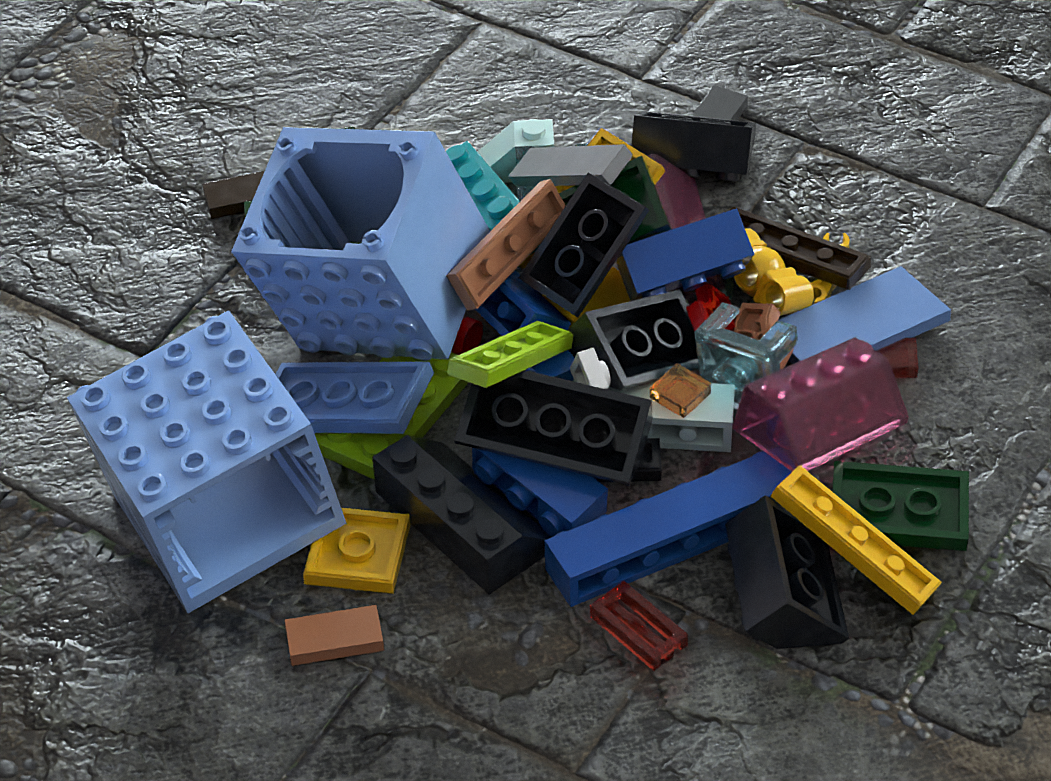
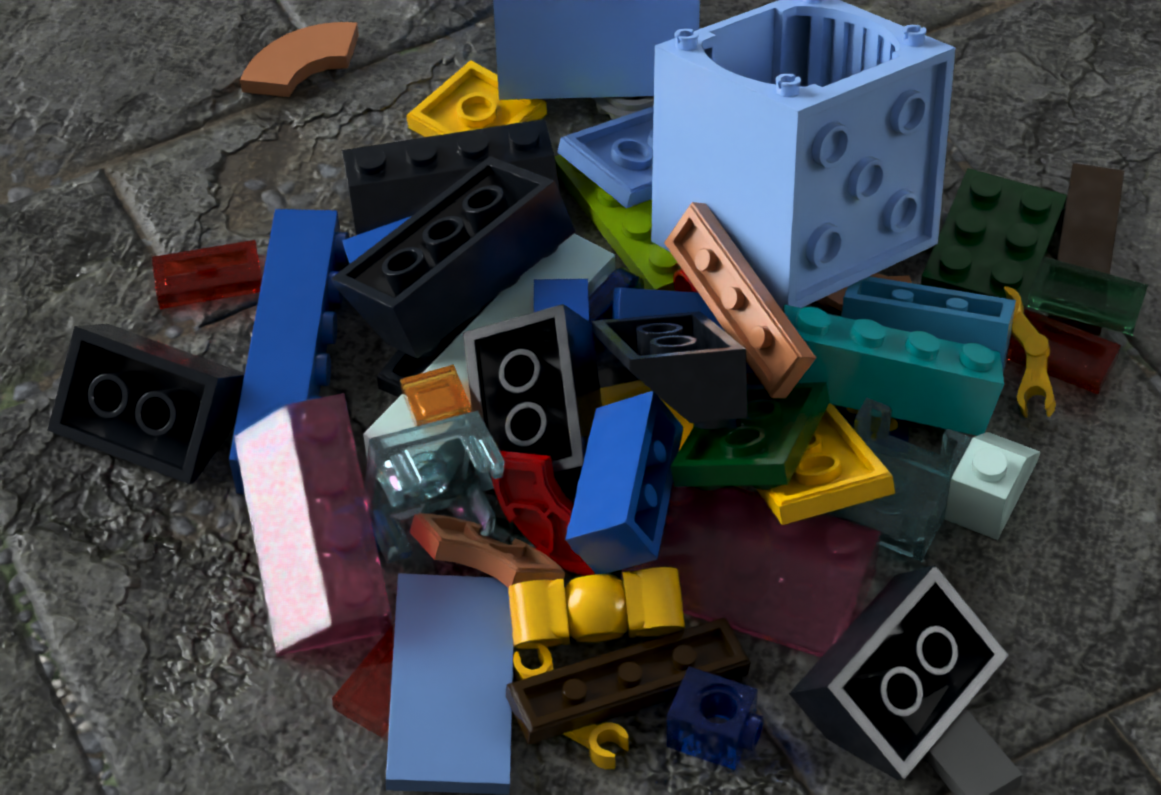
camera: 120 degrees right, 5 degrees up
(334, 635) = (385, 61): nougat tile -> none
(367, 698) = (297, 56): none -> nougat tile
(510, 354) = (543, 210): lime tile -> none
(570, 164) = (845, 421): light grey tile -> none
(589, 370) = (494, 300): white plate -> none
(788, 199) = (711, 696): none -> clear blue brick
(856, 539) = (126, 464): yellow tile -> none
(908, 502) = (153, 556): dark green plate -> none

